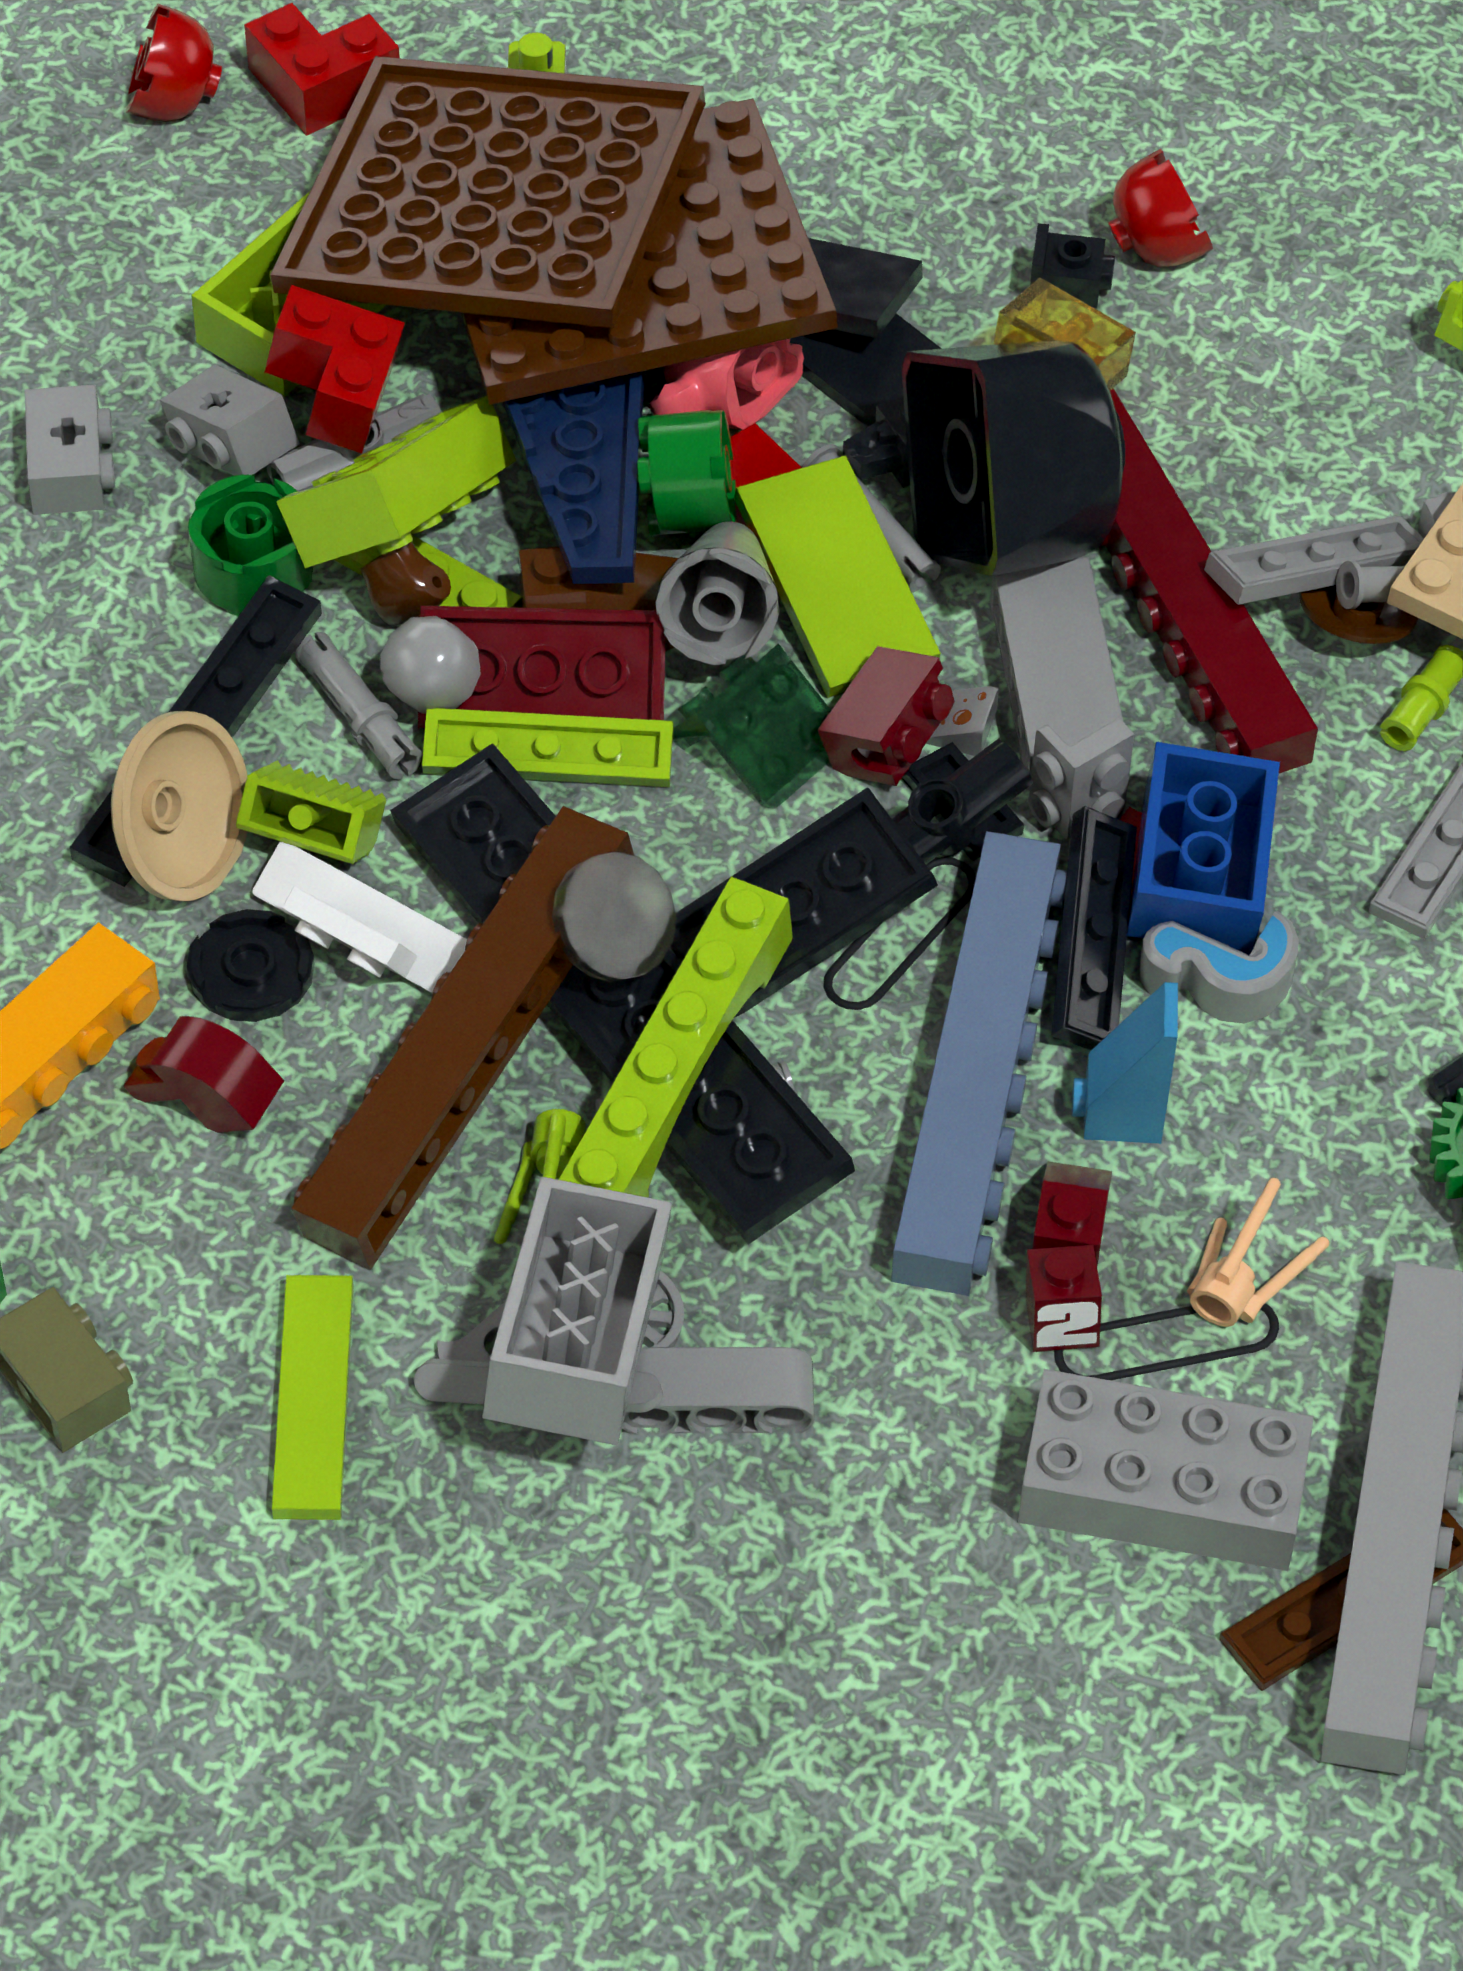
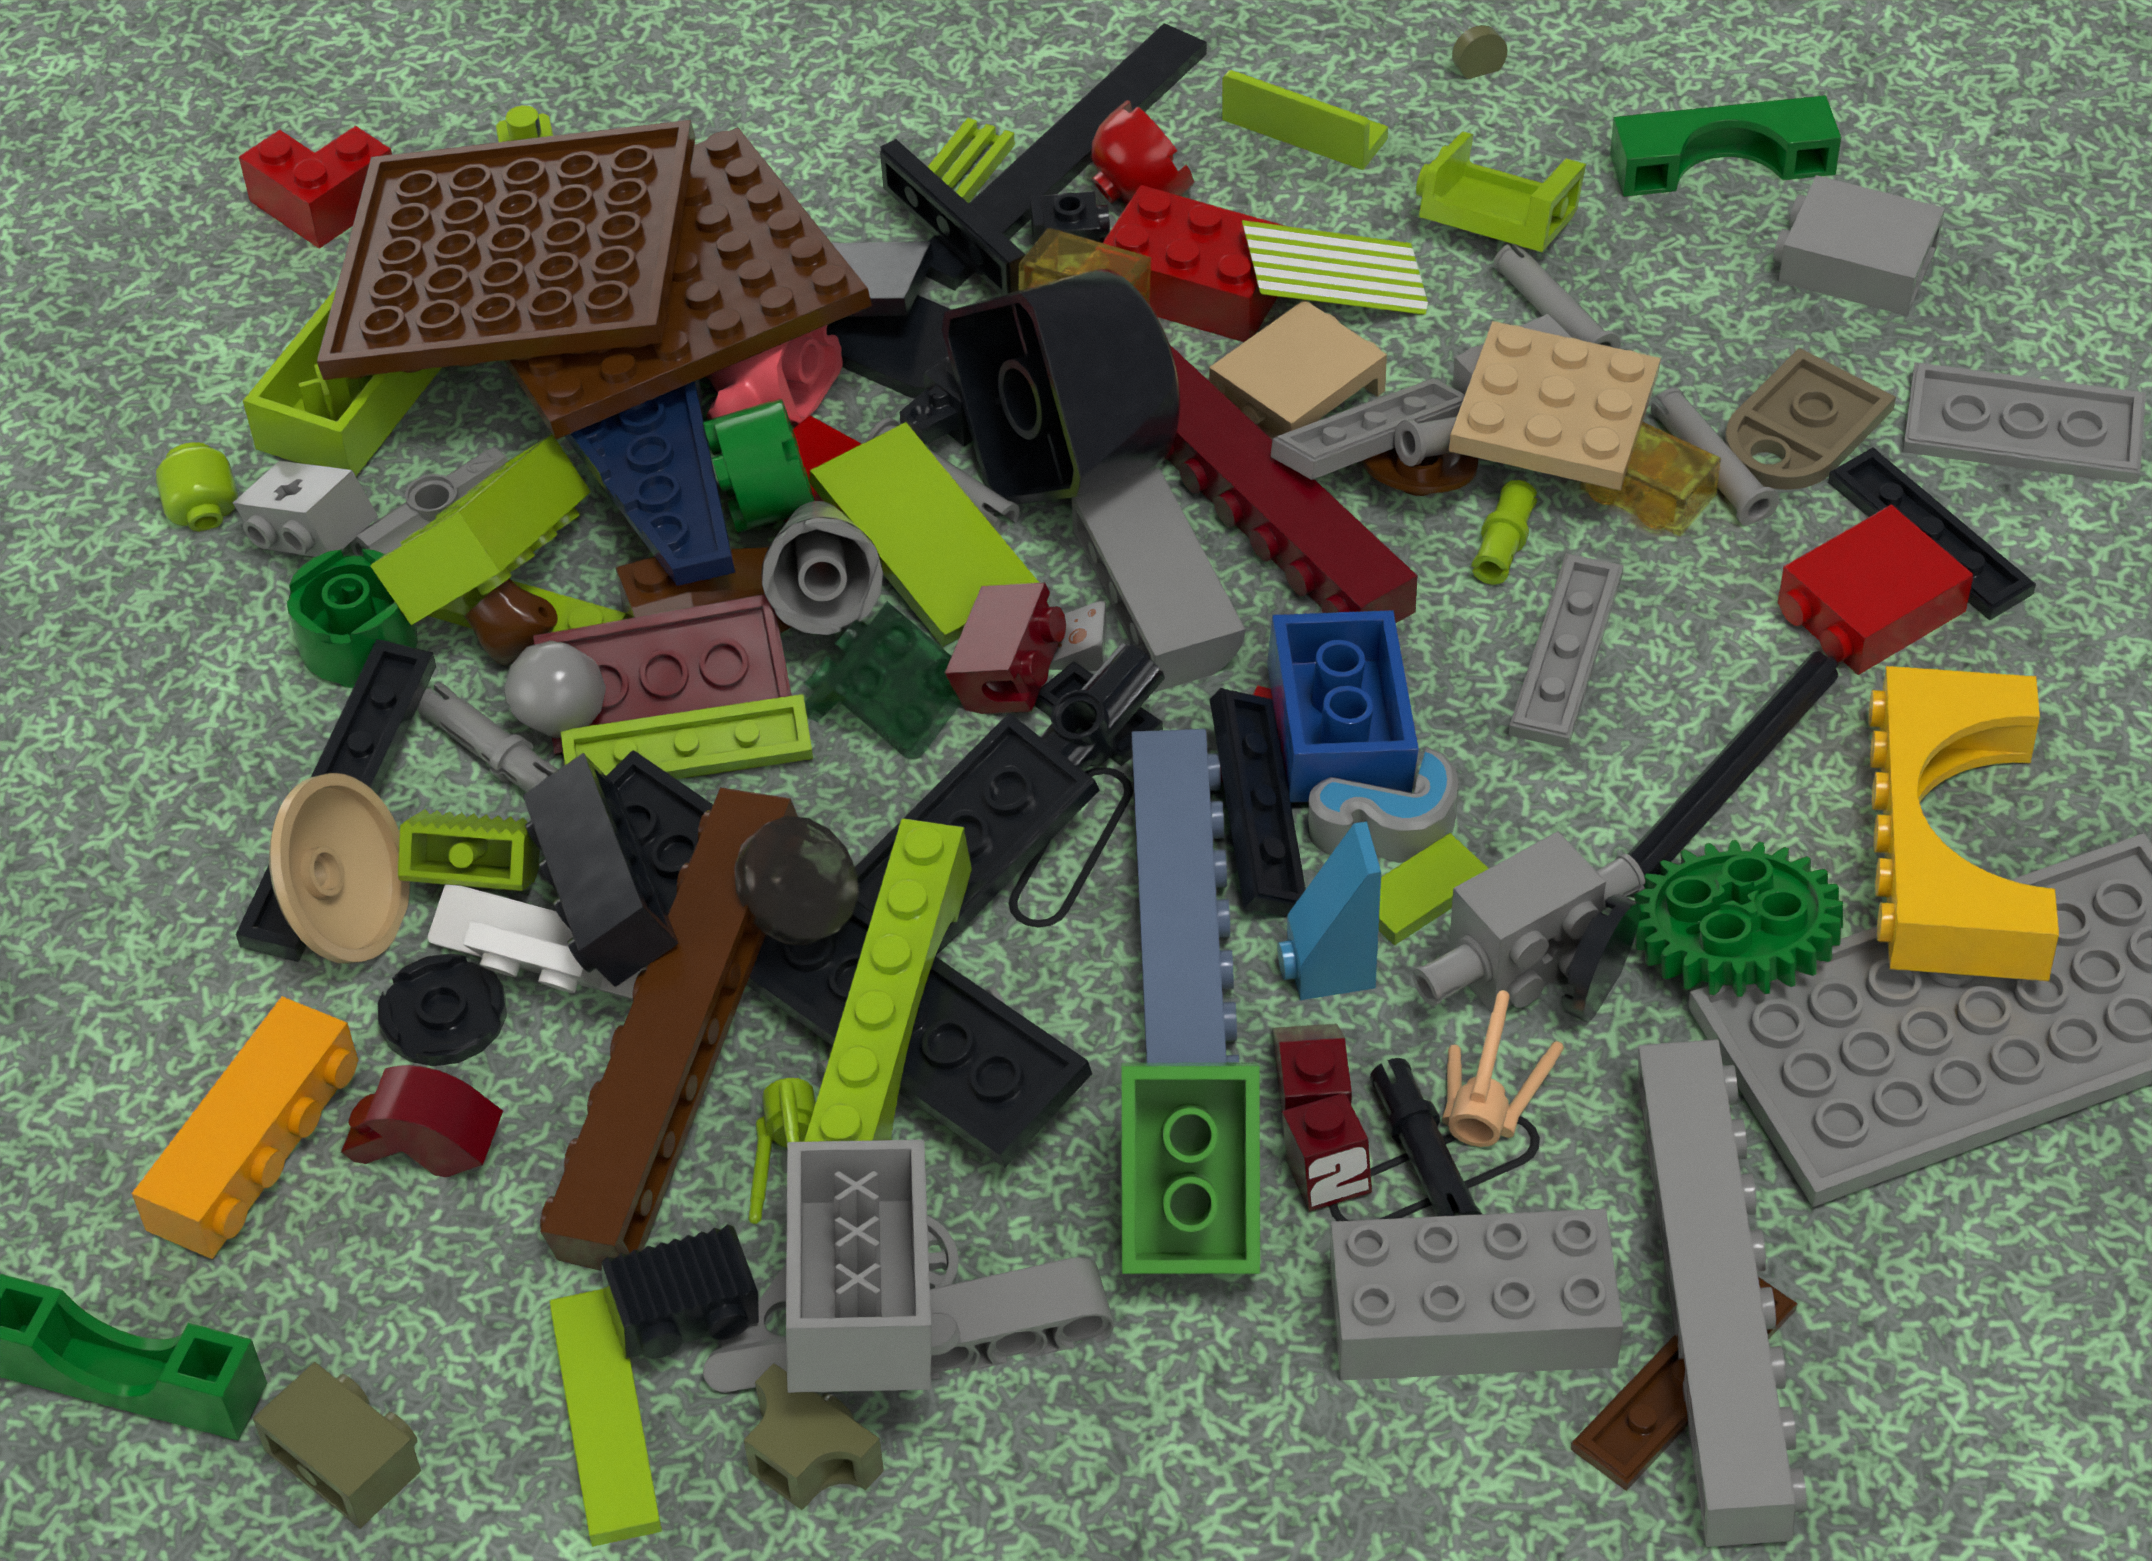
camera: 10 degrees left, 5 degrees down
(66, 449) = (150, 568): light grey brick -> none
(129, 372) = (196, 485): none -> lime head
(173, 67) = (177, 209): red cylinder -> none
(341, 355) = (400, 423): red brick -> none
(409, 1297) = (680, 1293): none -> black brick
(426, 864) = (598, 872): none -> black brick
(495, 1468) = (808, 1442): none -> olive brick
(921, 1285) = (1190, 1167): none -> bright green brick
(948, 239) = (950, 218): none -> black tile
(995, 141) = (986, 166): none -> lime tile
(1085, 185) = (1068, 144): none -> black tile
(1085, 774) = (1205, 661): light grey bracket -> none
(1159, 1292) = (1416, 1125): none -> black pin
(1197, 339) = (1197, 262): none -> red brick
(1237, 1053) = (1424, 887): none -> lime tile
(1260, 481) = (1298, 370): none -> tan panel
(1322, 1114) = (1523, 922): none -> light grey brick
(1330, 376) = (1335, 268): none -> sticker
(1344, 200) = (1300, 120): none -> lime panel
(1386, 1164) = (1601, 957): none -> black tile

